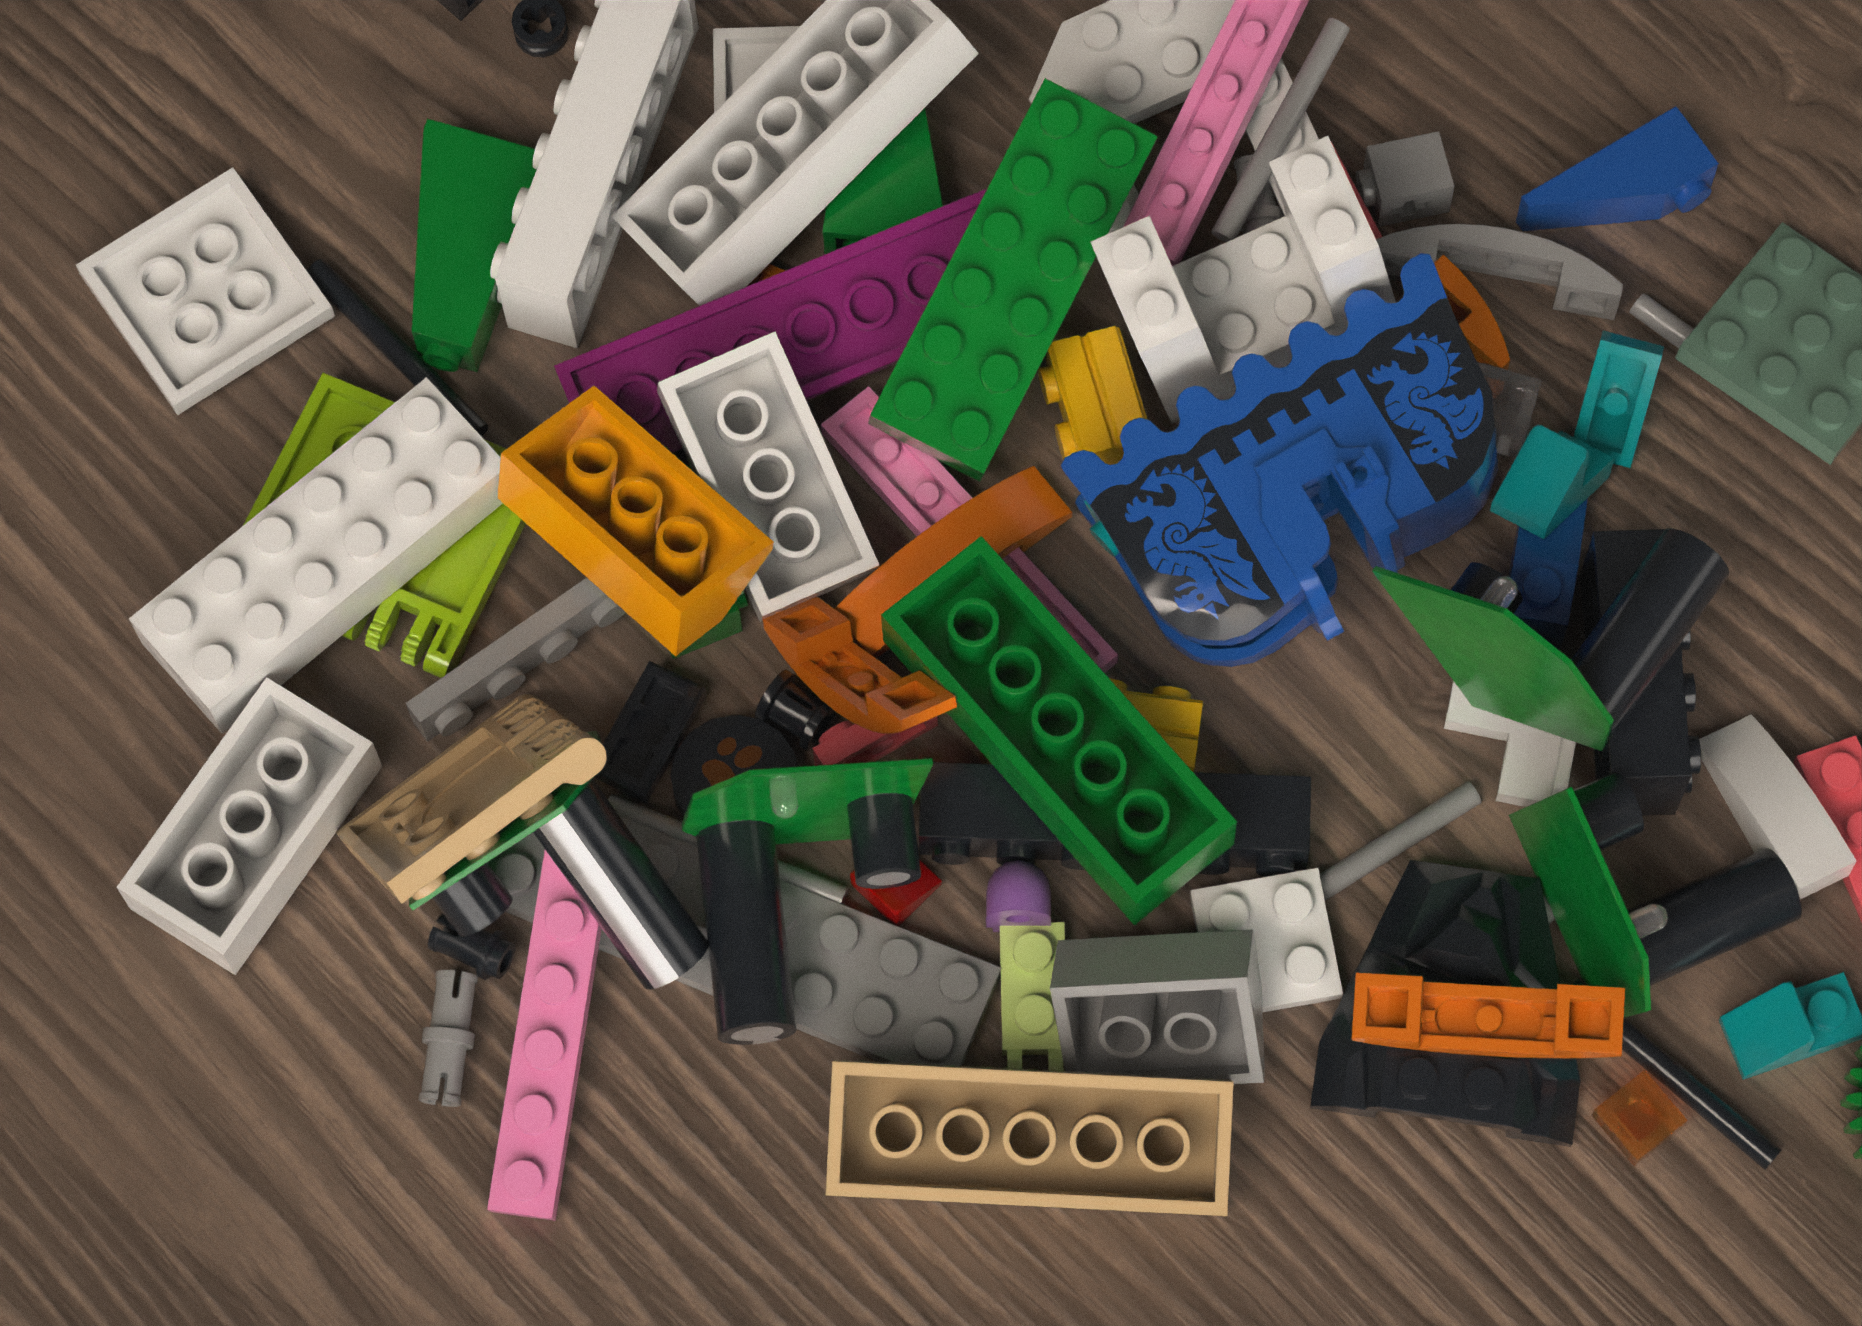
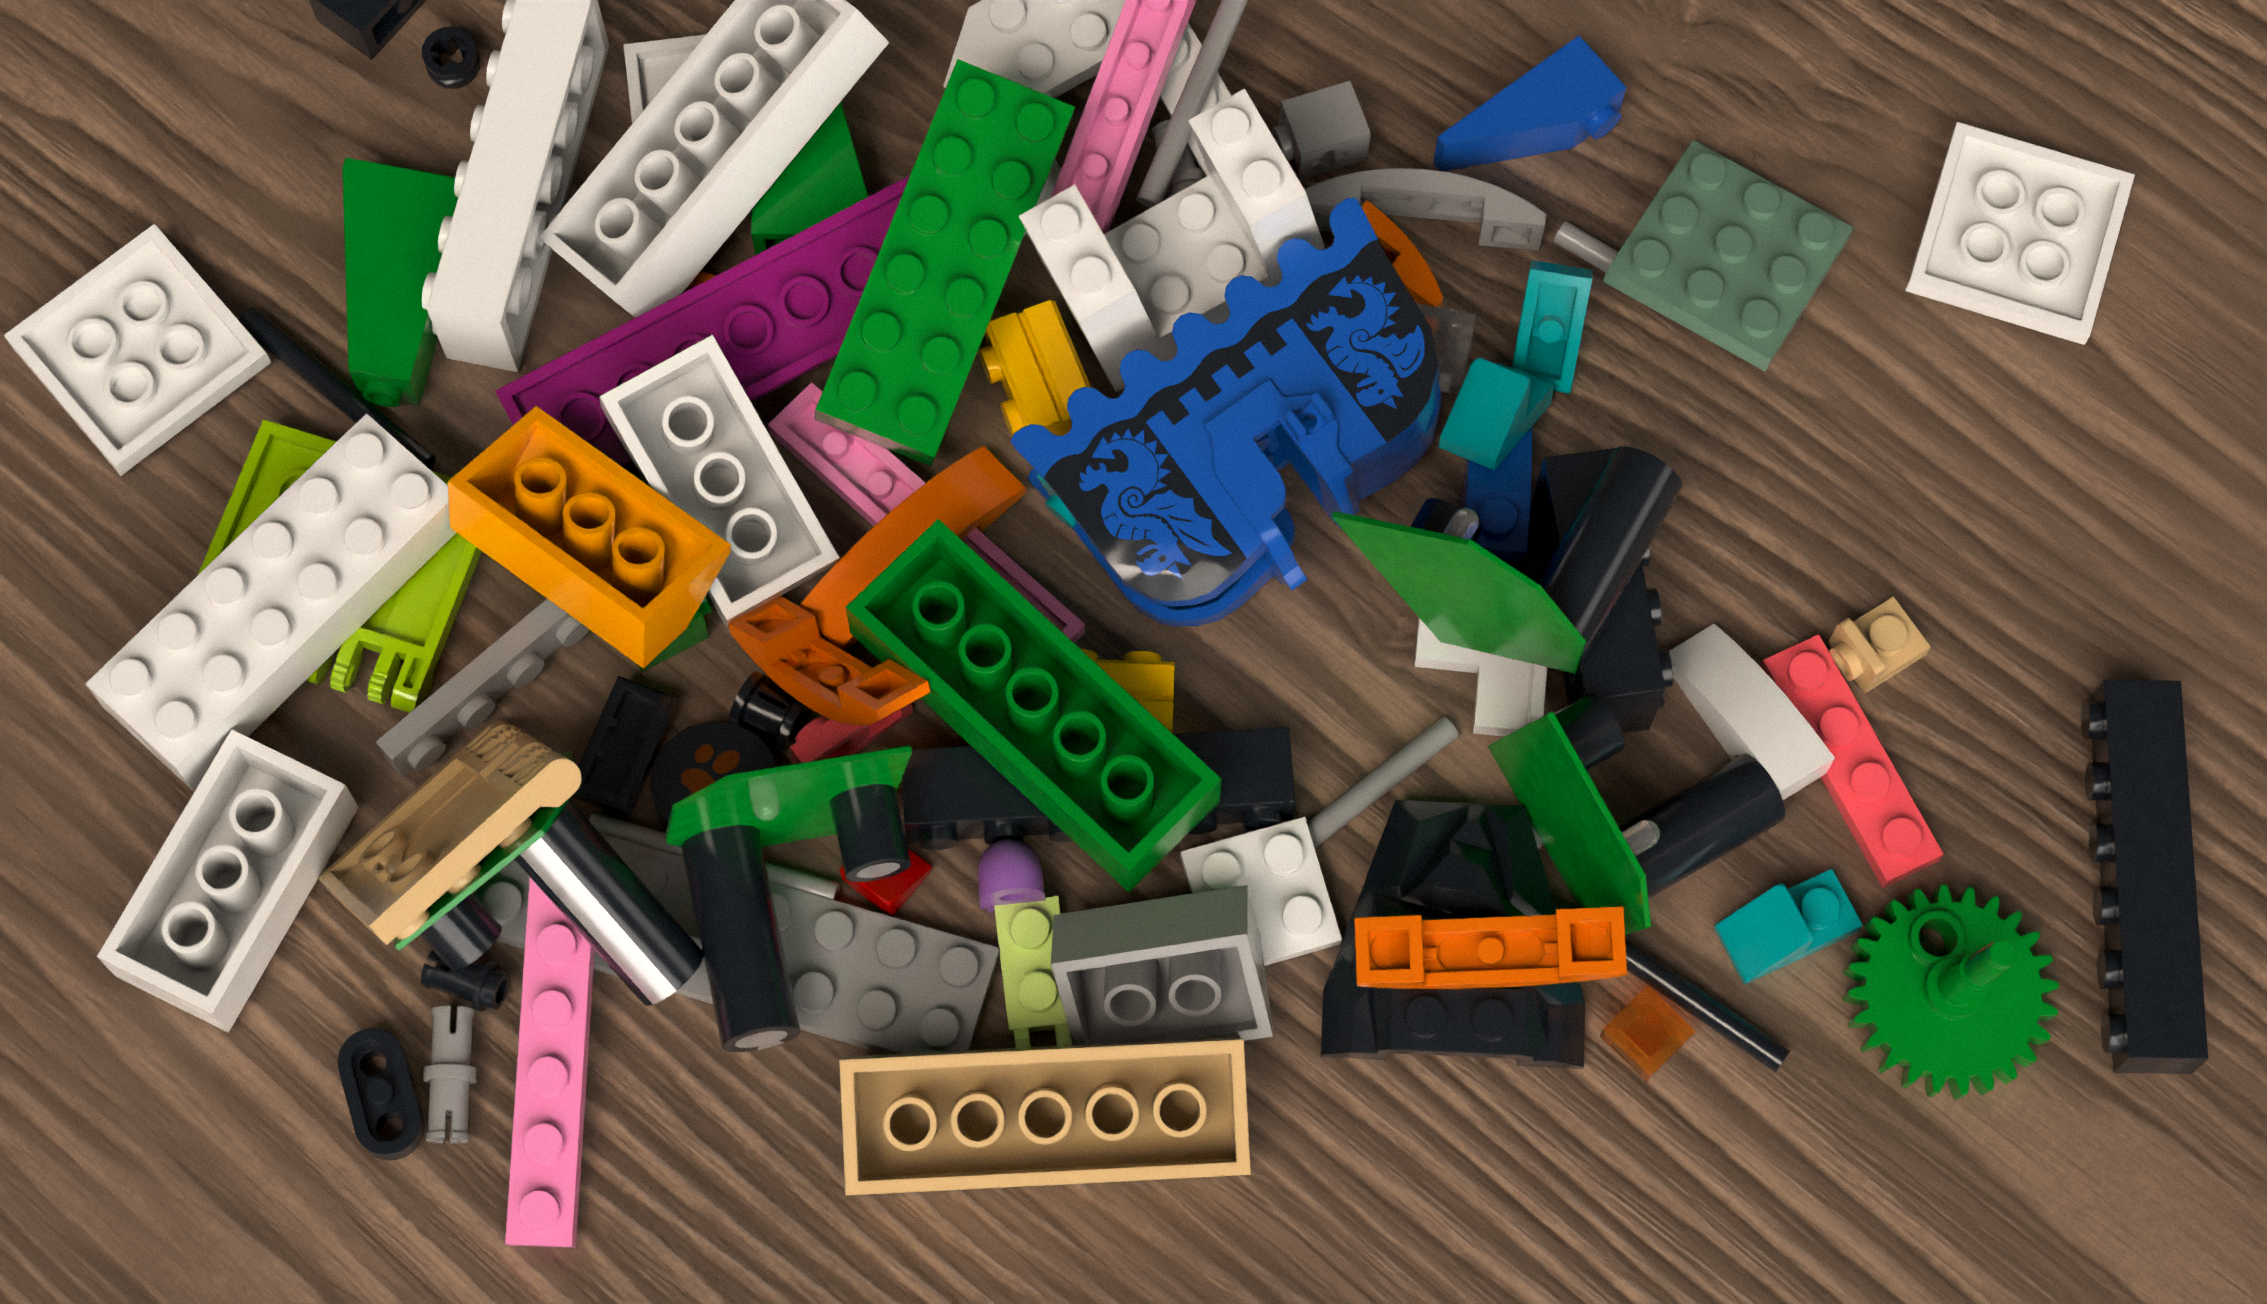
camera: 10 degrees left, 0 degrees up
(380, 1052) = (382, 1096): none -> black plate

